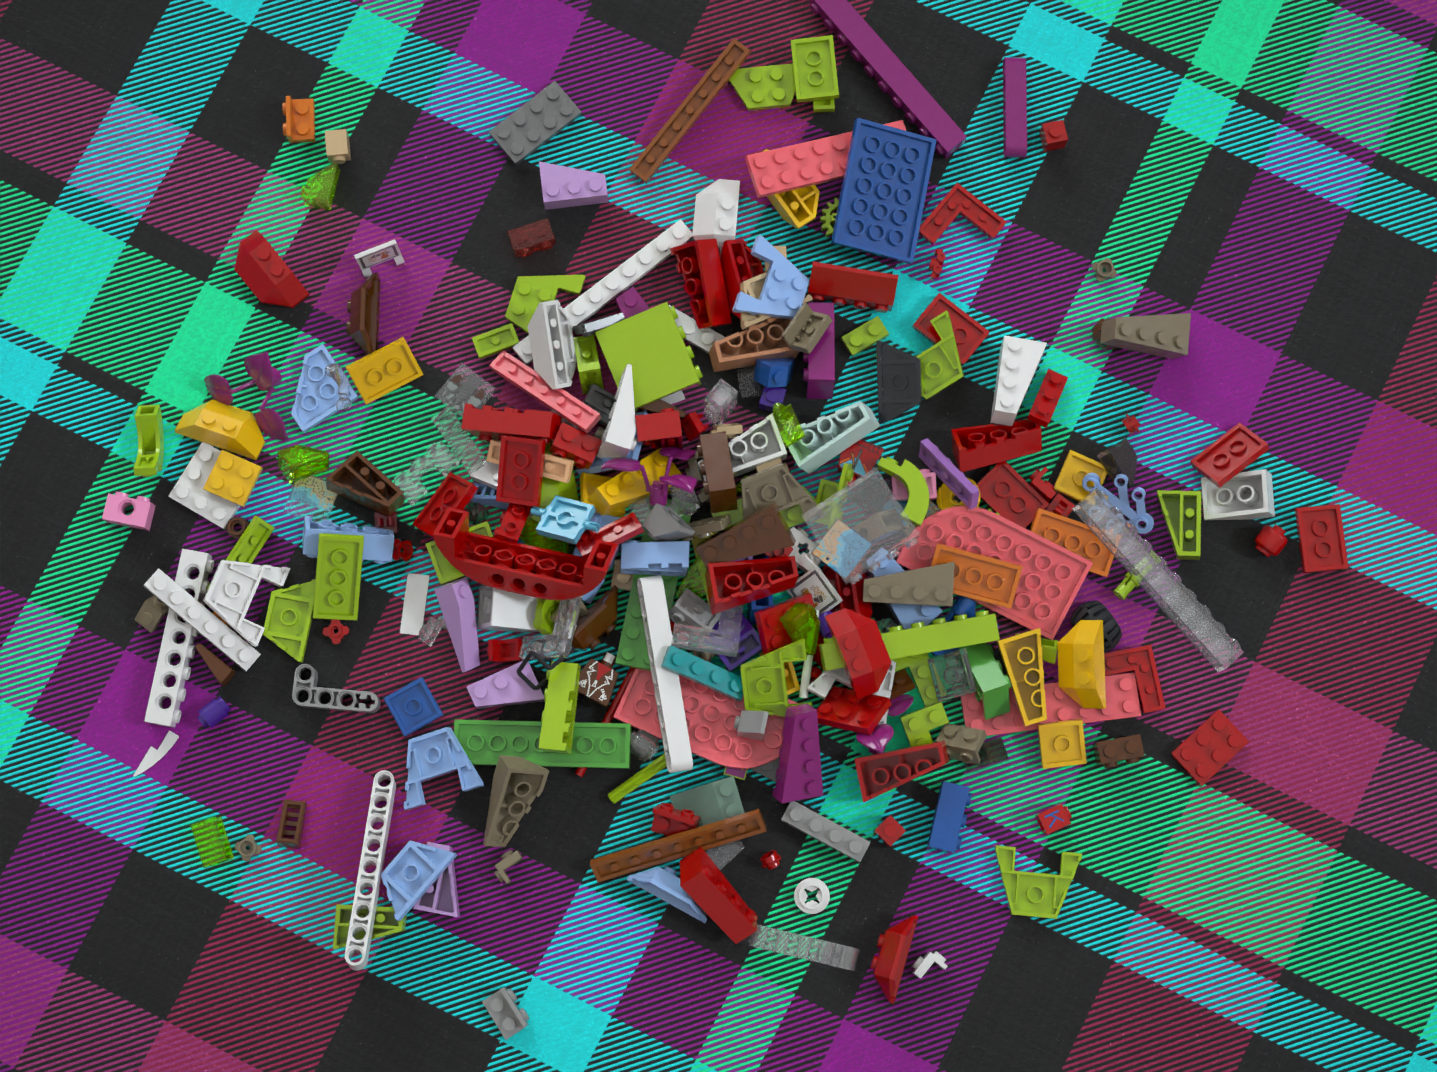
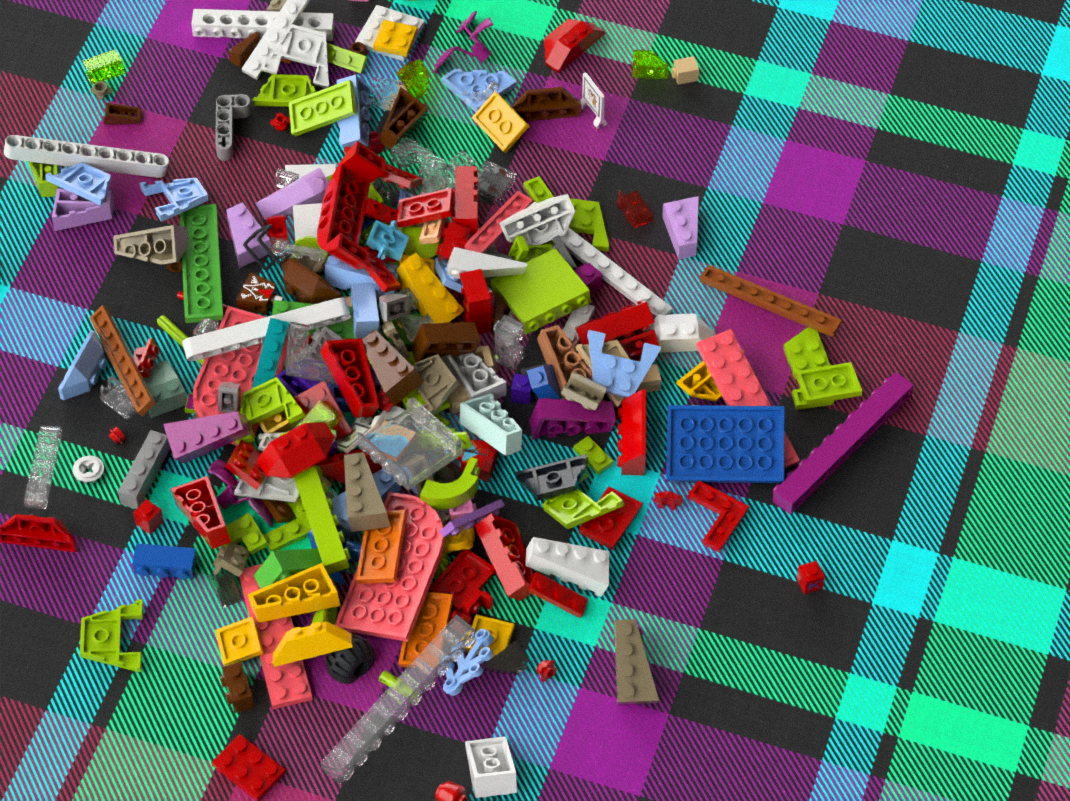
camera: 85 degrees right, 25 degrees down
(154, 755) = (170, 26): white sticker -> none
(213, 712) = (206, 54): dark purple brick -> none
(224, 428) = (437, 31): yellow wedge -> none
(299, 120) = (703, 44): orange bracket -> none
(413, 706) = (224, 178): blue plate -> none
(508, 860) = (97, 251): dark tan bracket -> none
(535, 123) = (736, 199): flat silver plate -> none
(560, 708) = (227, 260): lime wedge -> none
(659, 489) = (423, 296): magenta plant -> none
(693, 426) = (487, 337): red tile -> none
(716, 896) = (80, 389): red wedge -> none
(787, 423) = (491, 391): clear neon green hinge -> none
(923, 964) = (34, 558): white bracket -> none
(952, 675) = (290, 540): clear slope -> none
(1014, 107) = (831, 545): magenta beam -> none
(1053, 818) = (169, 642): red brick -> none
(1107, 264) = (691, 630): dark tan plate -> none
(1143, 664) = (320, 702): red plate -> none
(1183, 521) = (457, 718): lime wedge -> none
(1229, 455) = (528, 750): red plate -> none

